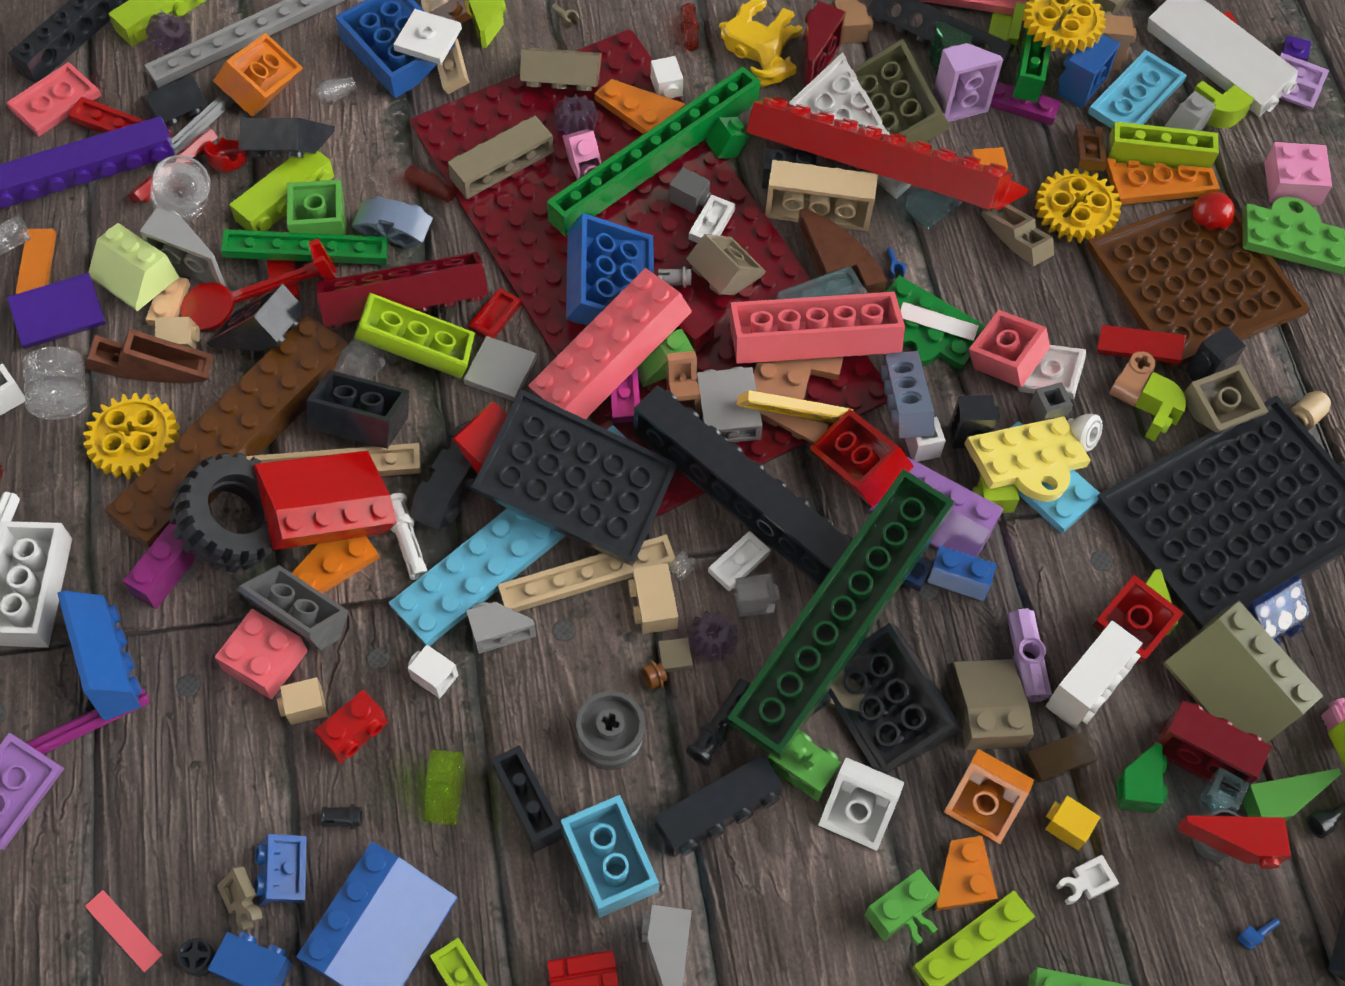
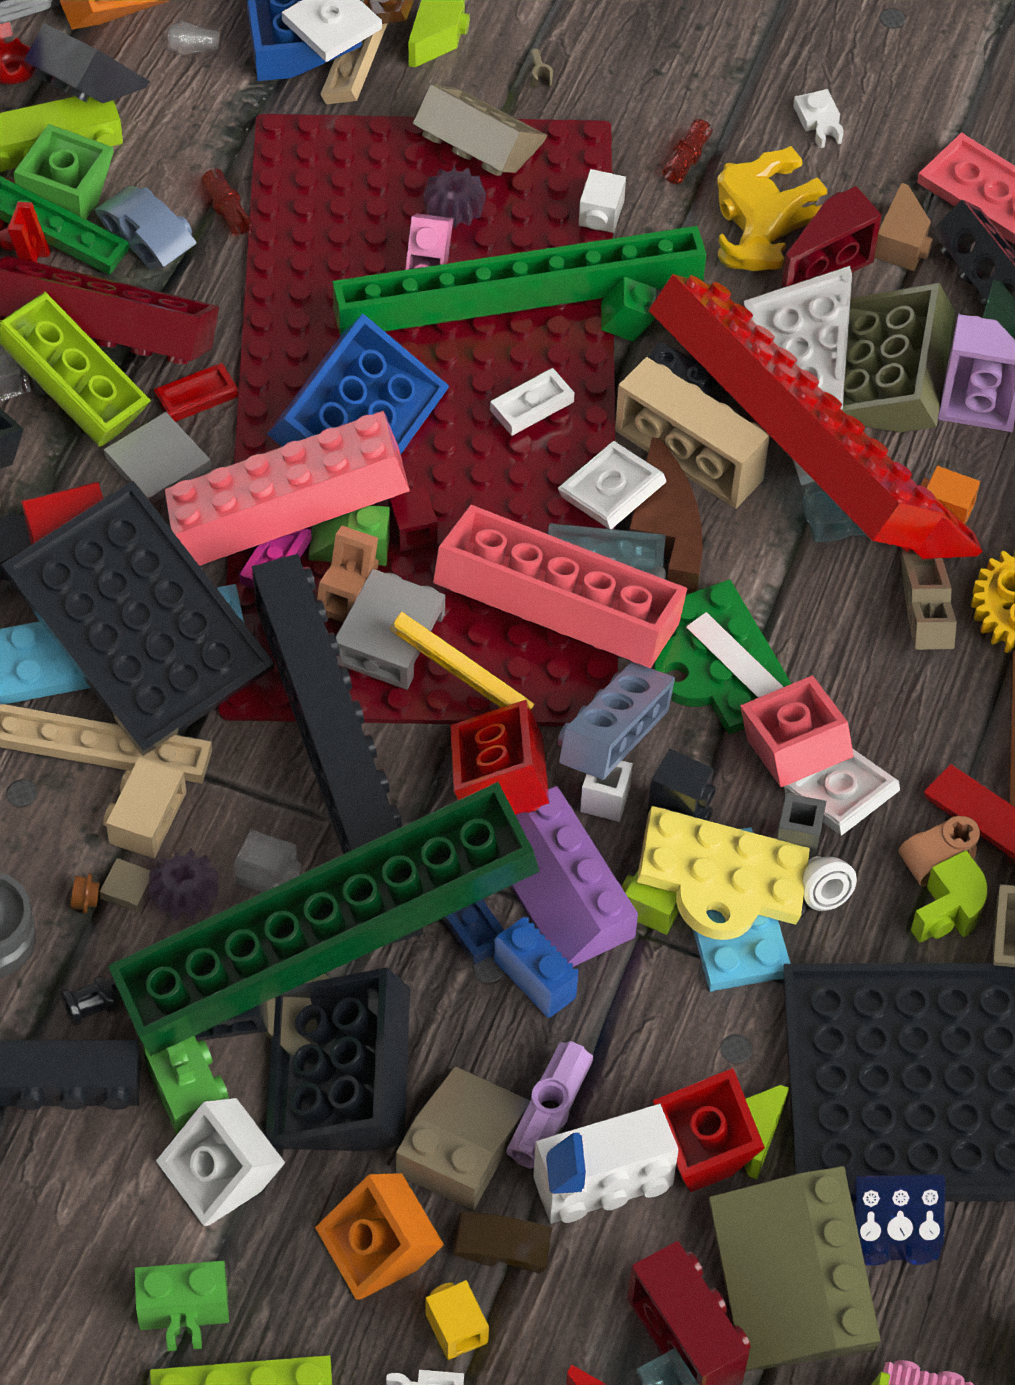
camera: 30 degrees right, 5 degrees down
(500, 157) = (327, 206): dark tan brick -> none
(636, 106) = (541, 215): orange wing -> none
(676, 276) = (438, 447): light grey pin -> none
(682, 566) = (205, 787): clear bush -> none
(689, 190) = (529, 349): dark grey brick -> none
(724, 264) = (509, 459): dark tan slope -> none
(739, 560) = (280, 815): white plate -> none
(790, 380) = (488, 639): nougat wing -> none
(797, 250) = (612, 485): none -> white plate
(895, 265) = (736, 564): blue hand -> none
(966, 875) = (286, 1310): orange wing -> none
(1094, 689) = (566, 1165): none -> blue slope
(1141, 783) = (579, 1319): green slope -> none

